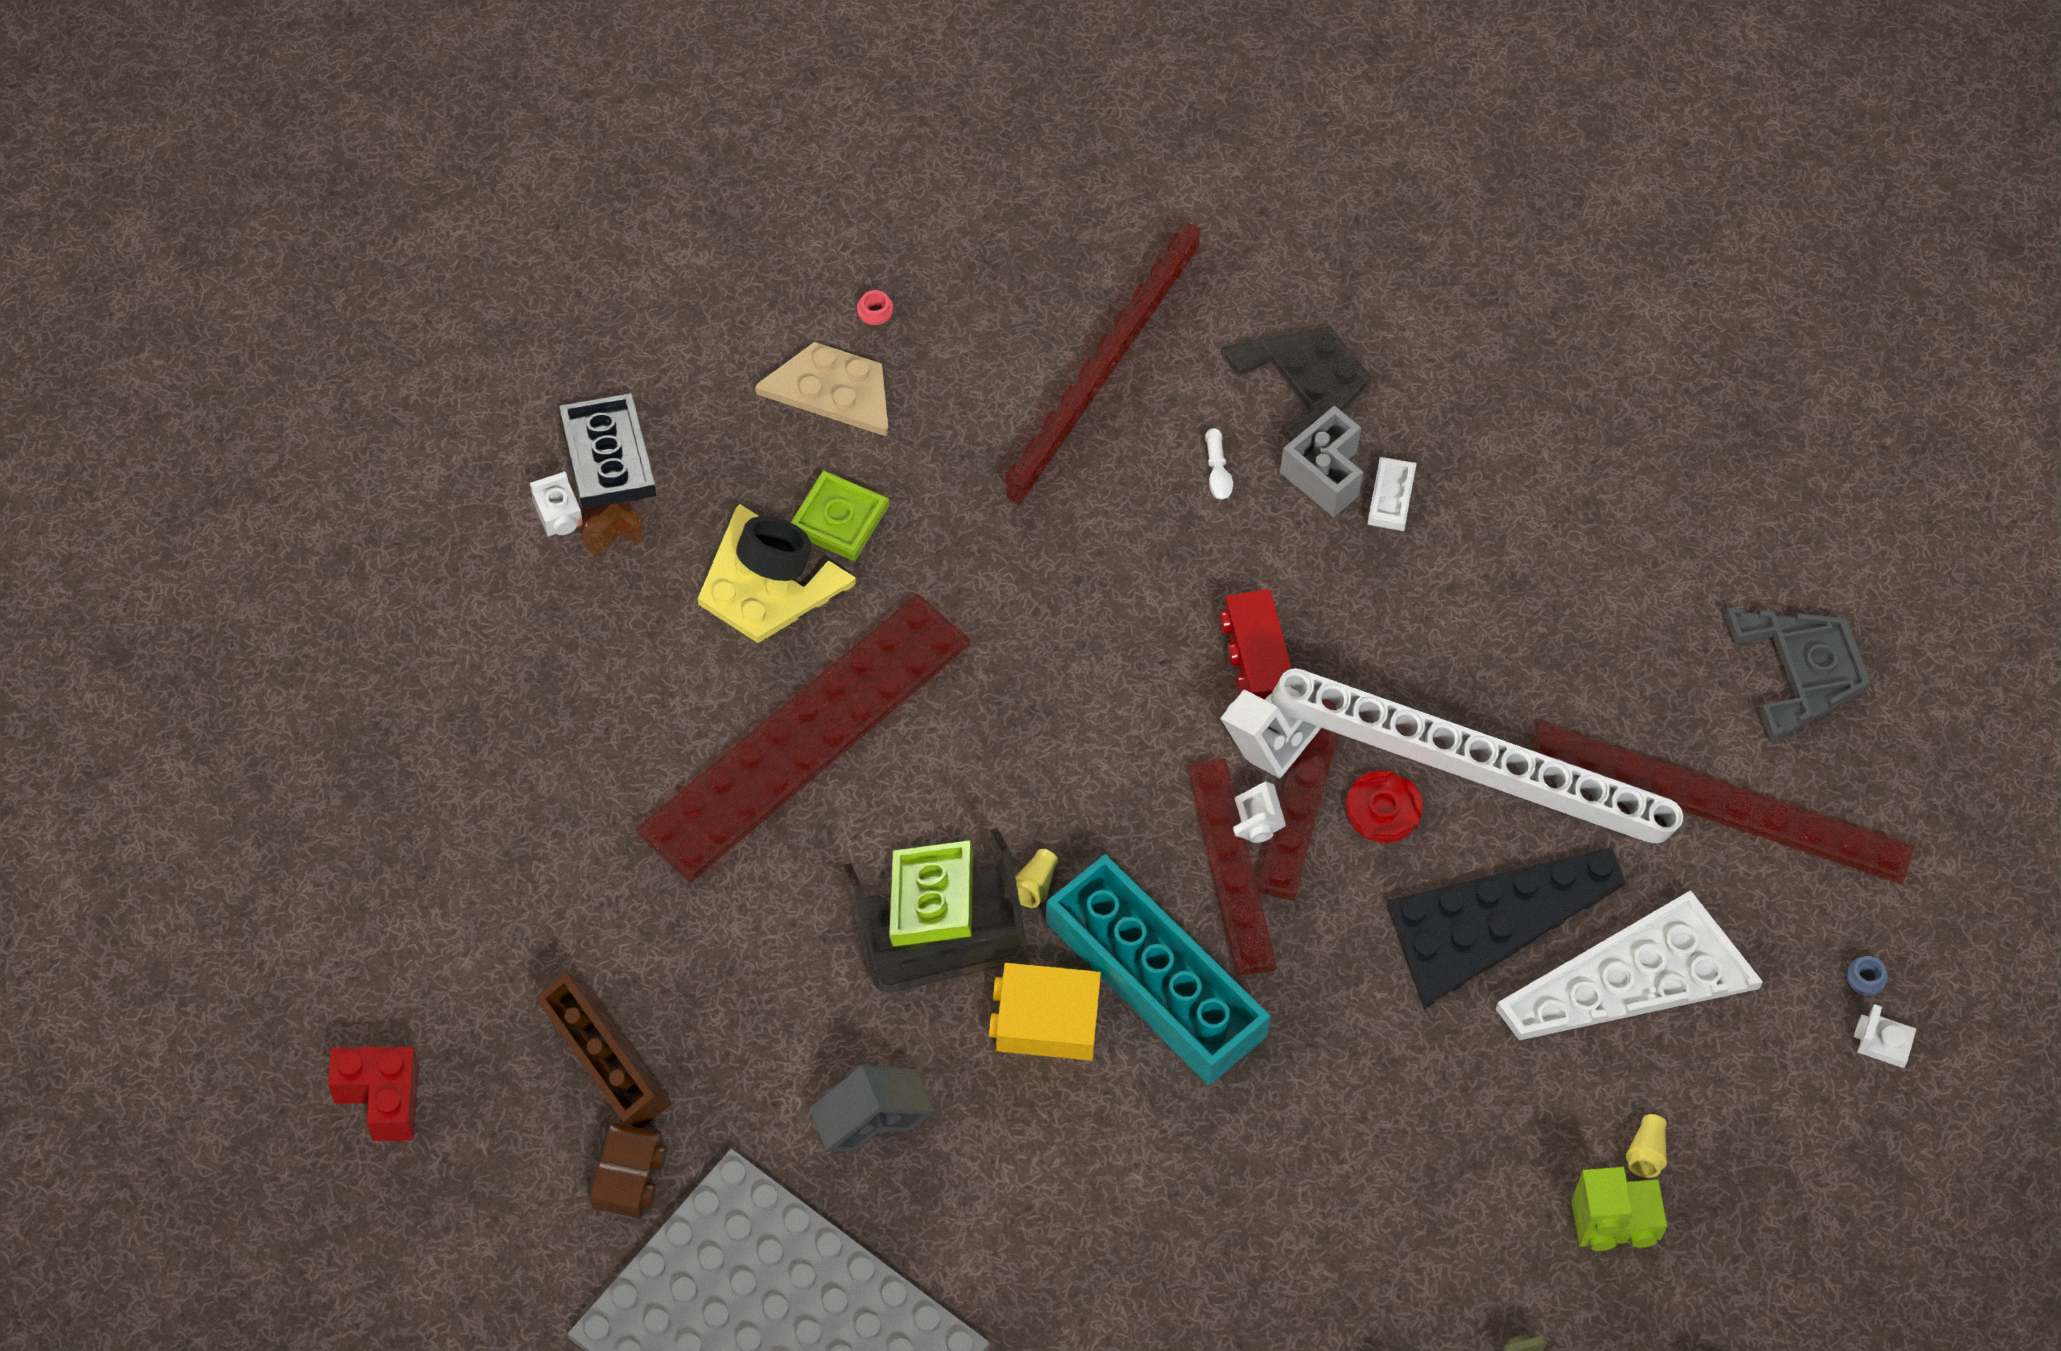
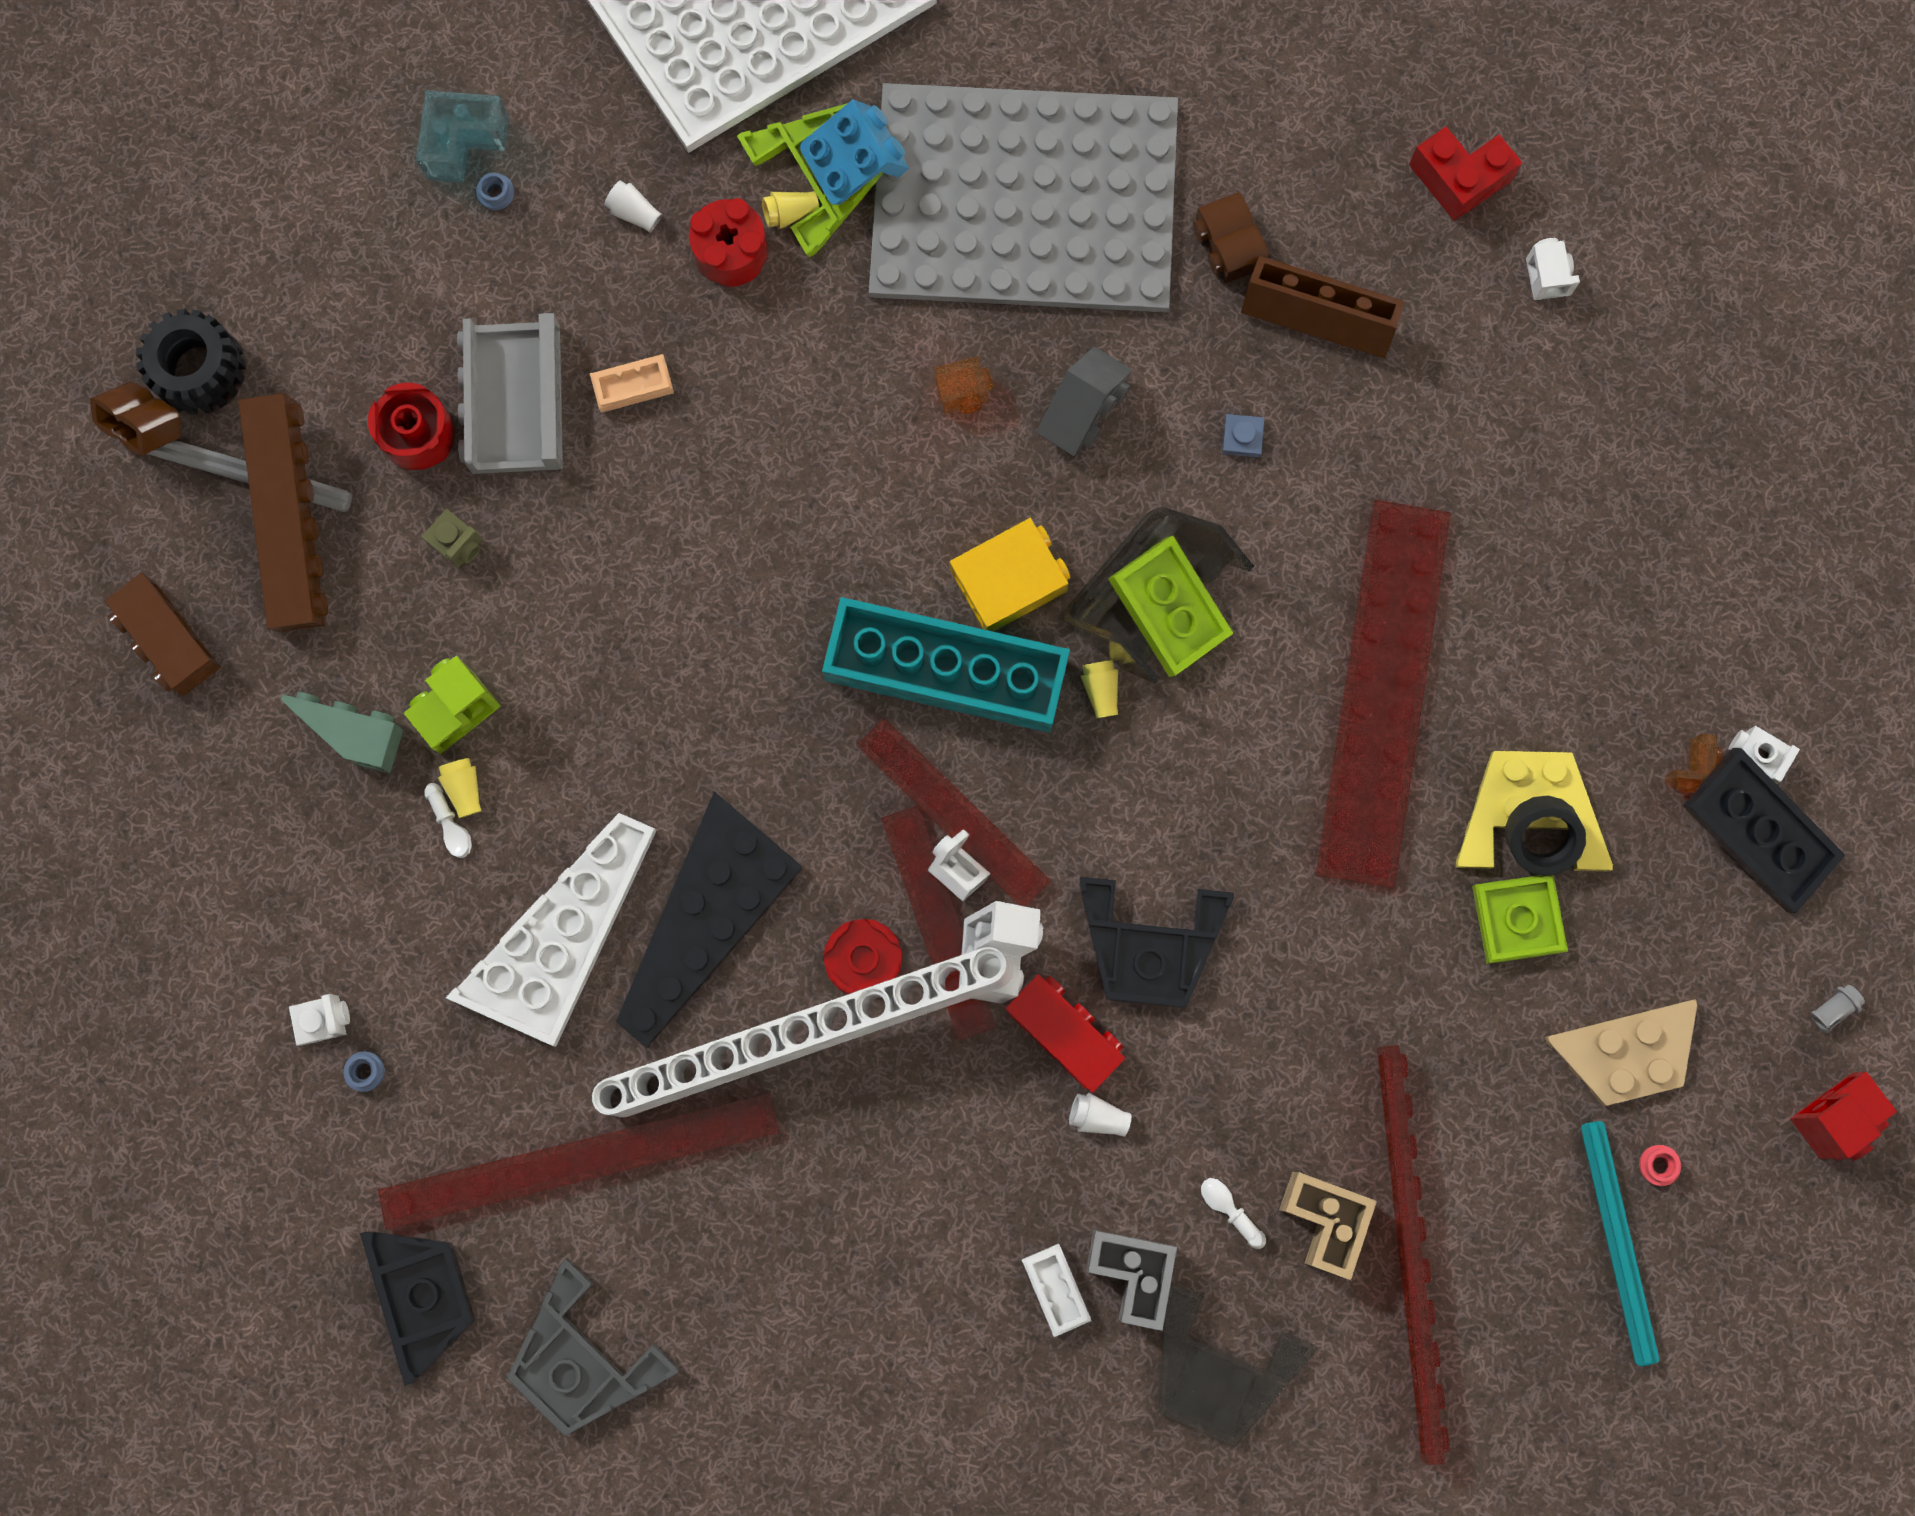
camera: 150 degrees right, 20 degrees up
(381, 960) = (1551, 270): none -> white brick
(656, 321) = (1837, 1008): none -> light grey pin
(720, 253) = (1845, 1118): none -> red brick
(754, 1003) = (1243, 435): none -> sand blue plate
(945, 283) = (1620, 1243): none -> teal axle
(967, 1197) = (963, 385): none -> clear orange brick
(1148, 407) = (1340, 1220): none -> tan brick
(1148, 658) = (1150, 961): none -> black wing
(1282, 584) = (1097, 1116): none -> white cone
(1678, 1112) = (455, 836): none -> white piece
(1725, 1249) = (356, 737): none -> sand green slope
(1911, 784) = (419, 1297): none -> black wing

